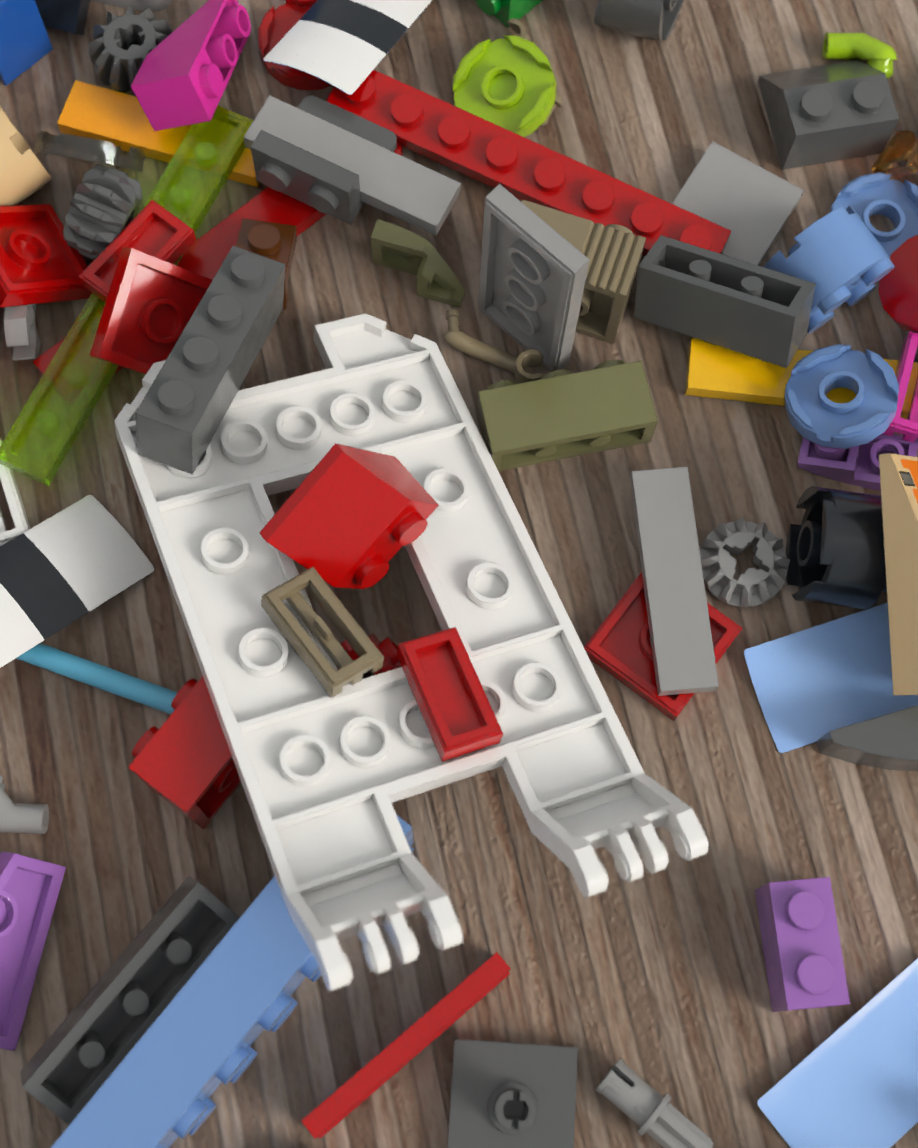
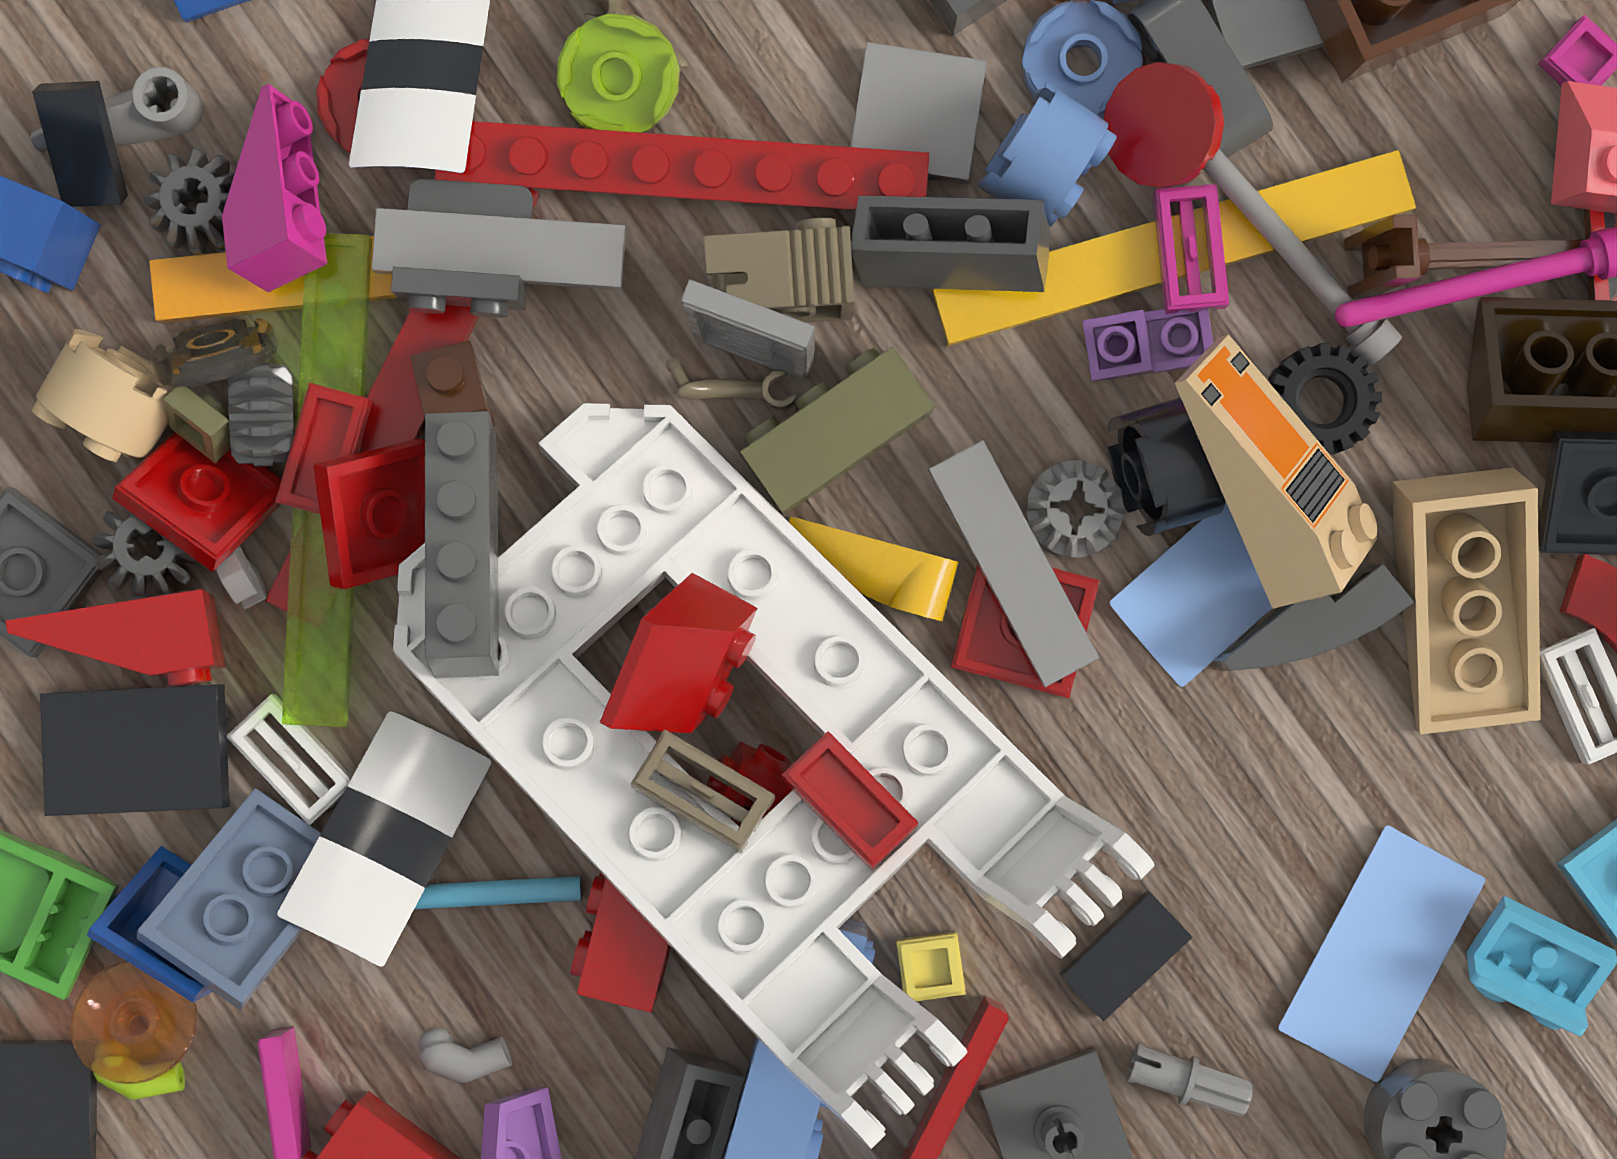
camera: 20 degrees left, 15 degrees up
(48, 195) = (199, 421): none -> olive plate
(413, 254) = (635, 327): olive slope -> none
(469, 901) = (931, 966): none -> light yellow tile
(570, 550) = (883, 570): none -> yellow piece
(639, 971) = (1125, 955): none -> black tile
(801, 944) = (1268, 874): medium lavender brick -> none
(841, 423) = (1136, 321): medium blue tile -> none

